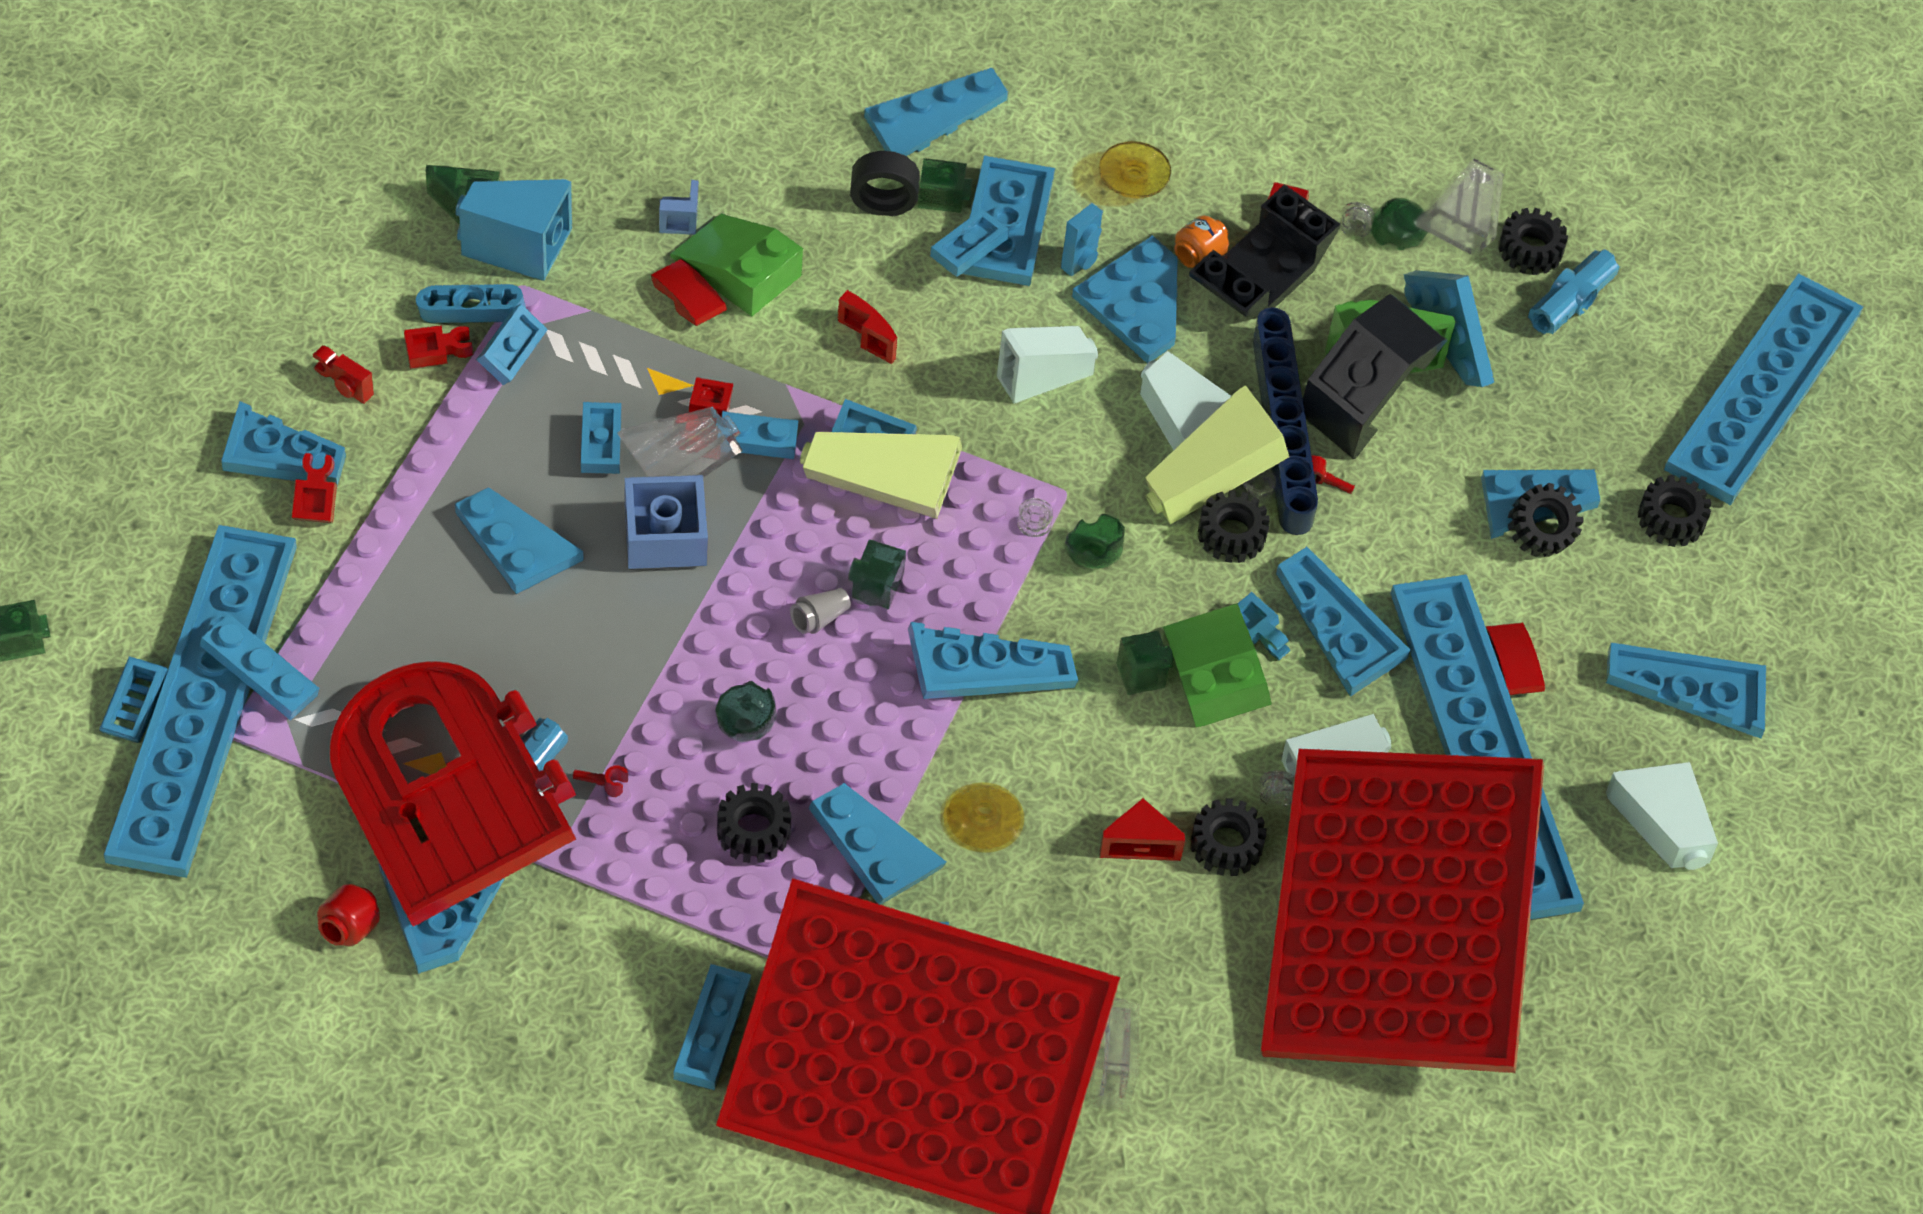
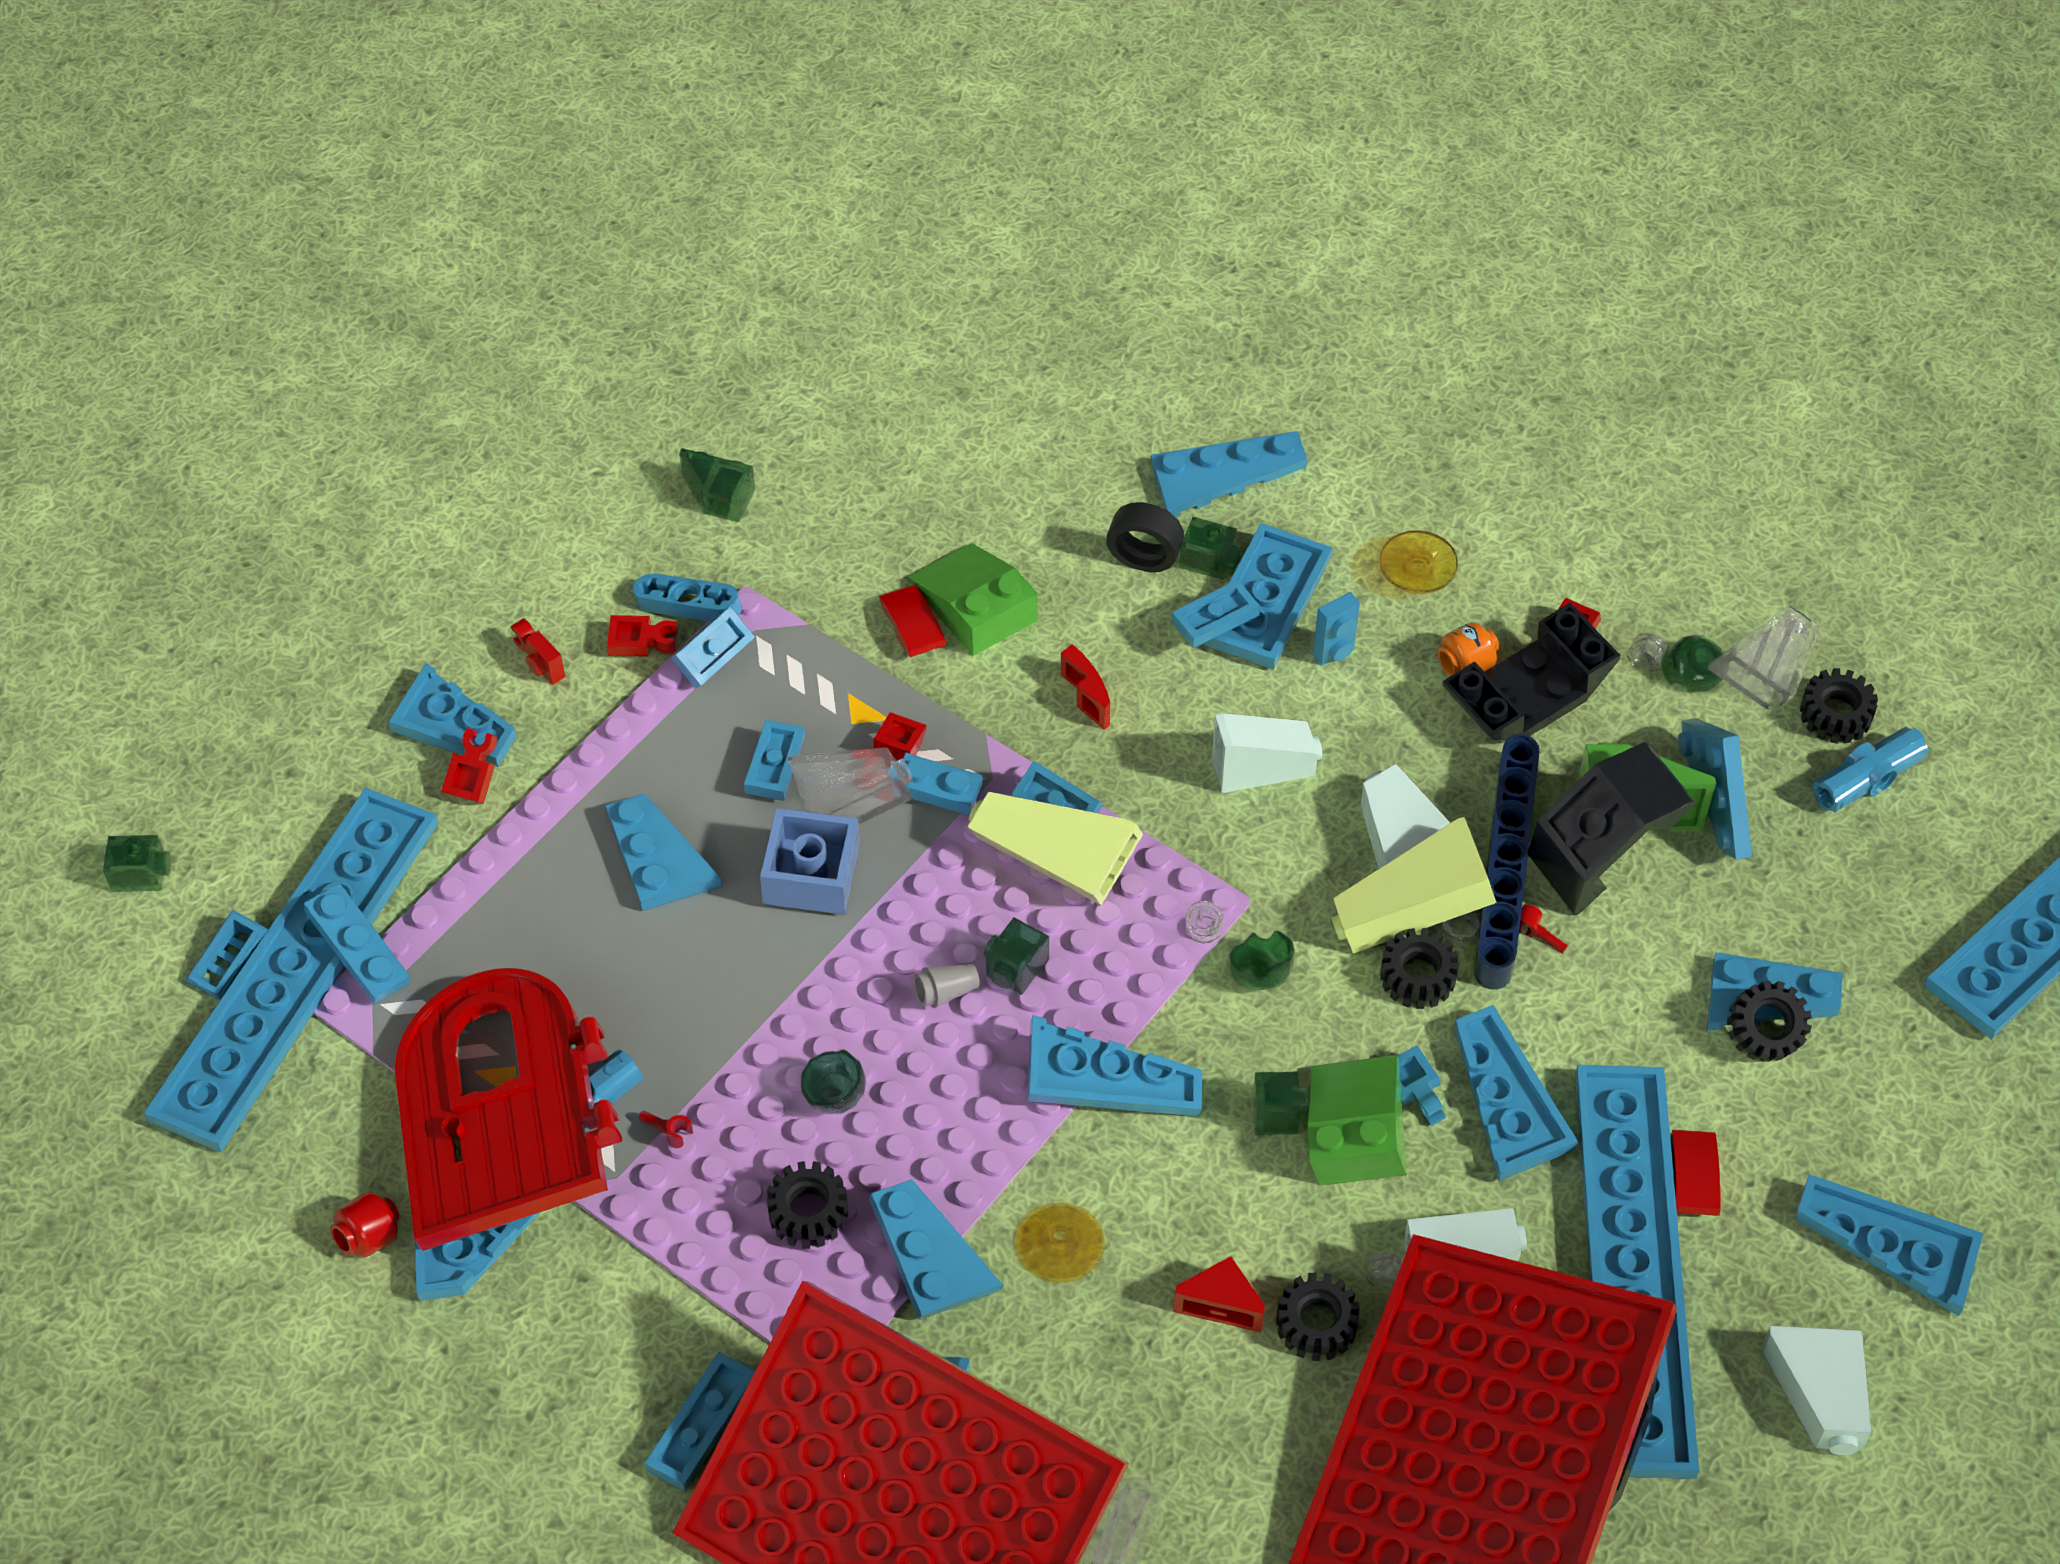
camera: 20 degrees right, 0 degrees up
(516, 223) = (754, 522): dark azure slope -> none
(679, 214) = (928, 536): medium blue panel -> none
(1136, 298) = (1384, 700): dark azure plate -> none
(1671, 527) = (1928, 1015): black tyre -> none

